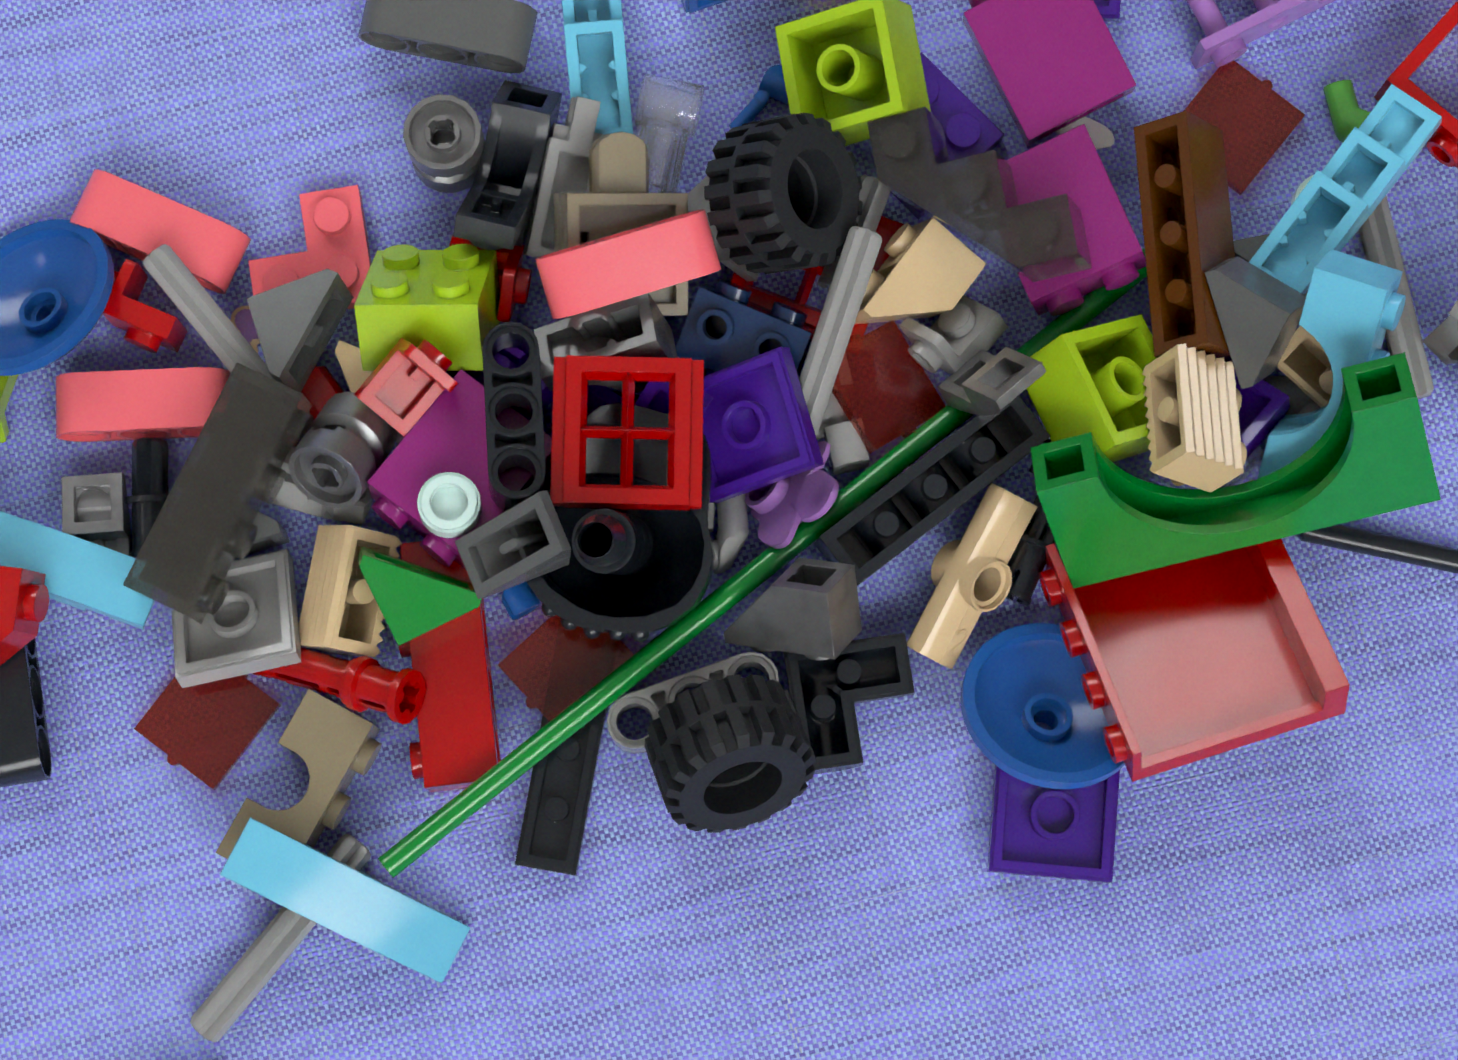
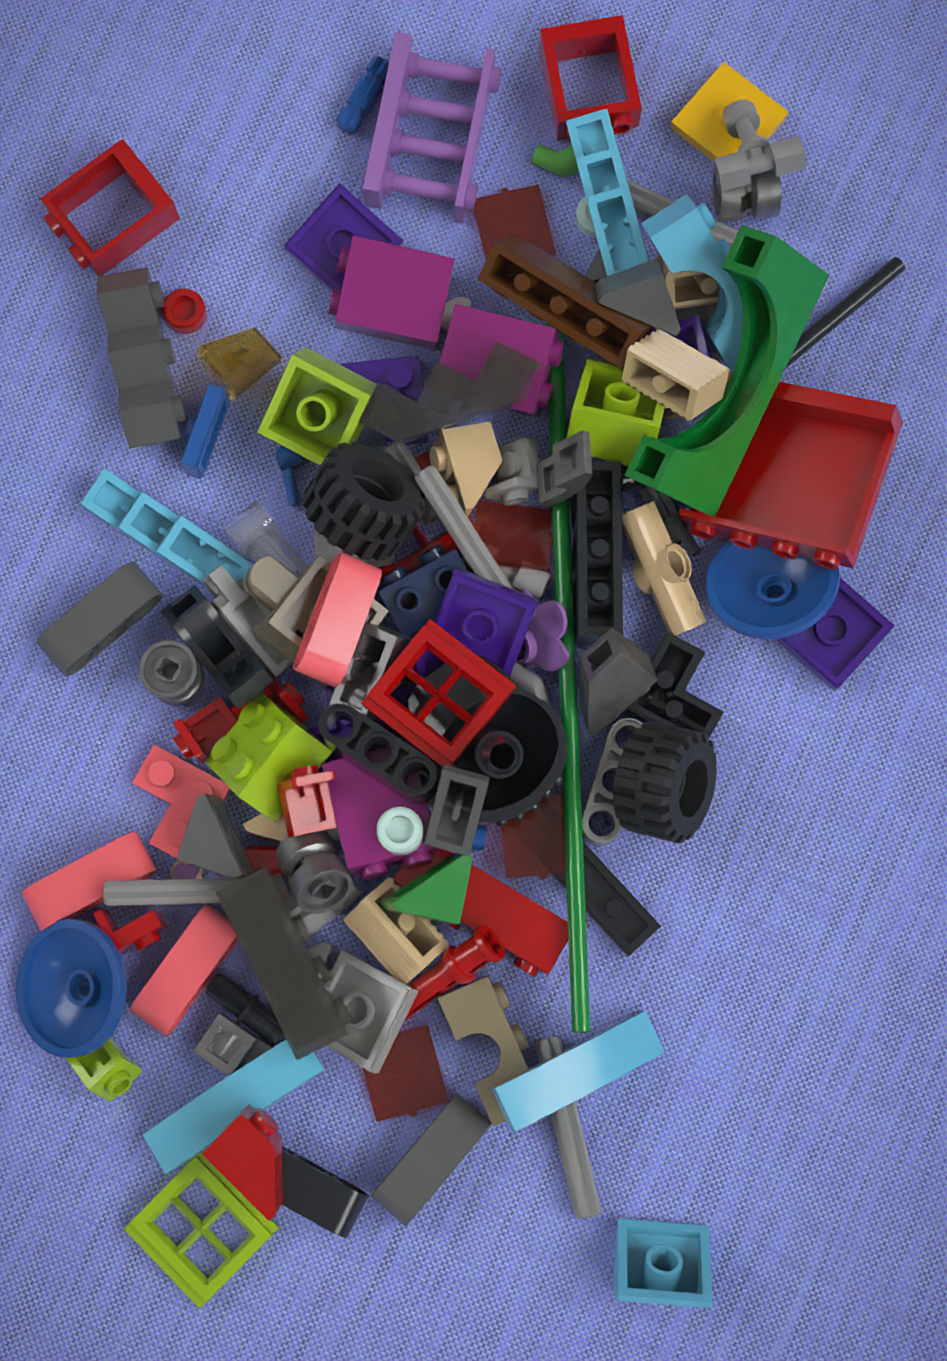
camera: 50 degrees left, 0 degrees up
(135, 815) = (431, 1159): none -> dark grey beam
(409, 221) = (204, 729): none -> red bracket

